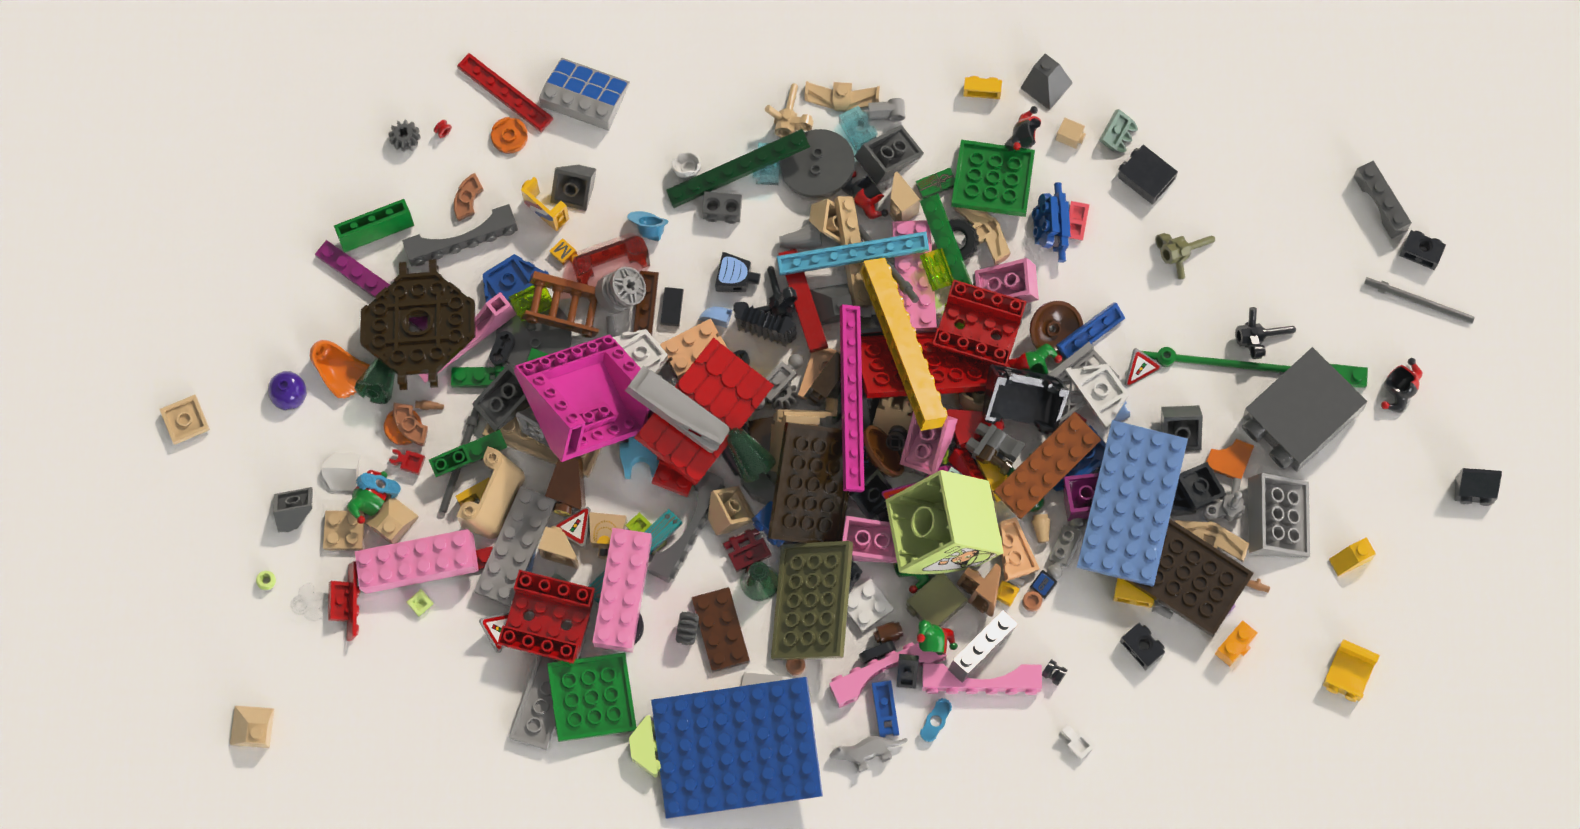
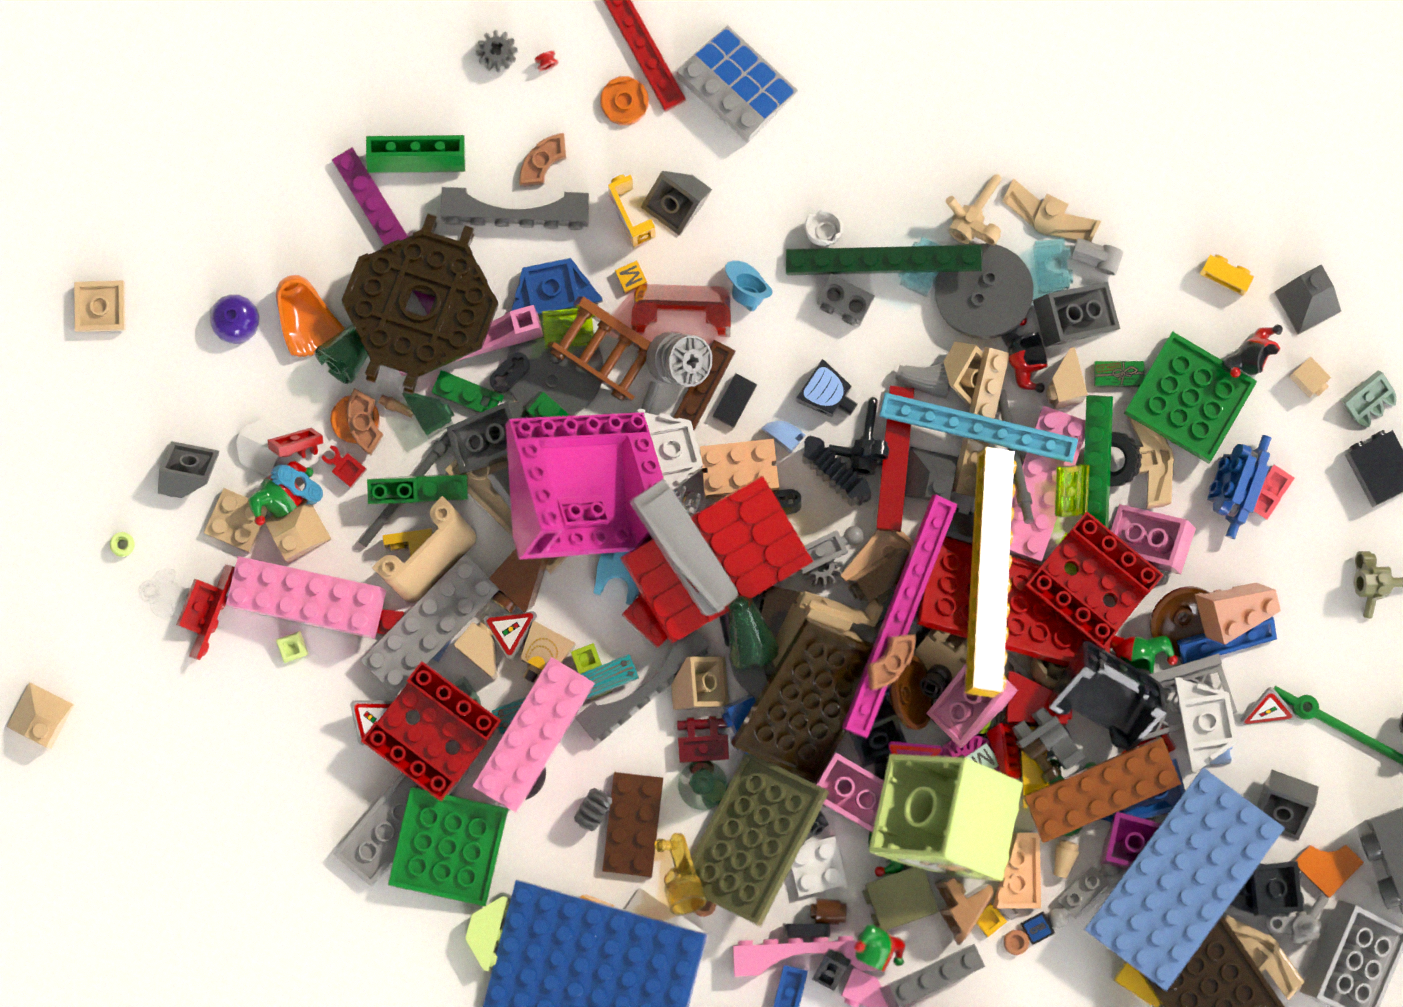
camera: 20 degrees right, 10 degrees up
(368, 455) = (296, 442): none -> plate
(454, 399) = (430, 413): none -> clear green slope
(773, 652) = (682, 885): none -> clear yellow piece
(860, 430) = (892, 663): none -> nougat tile
(1087, 306) = (1236, 610): none -> wedge

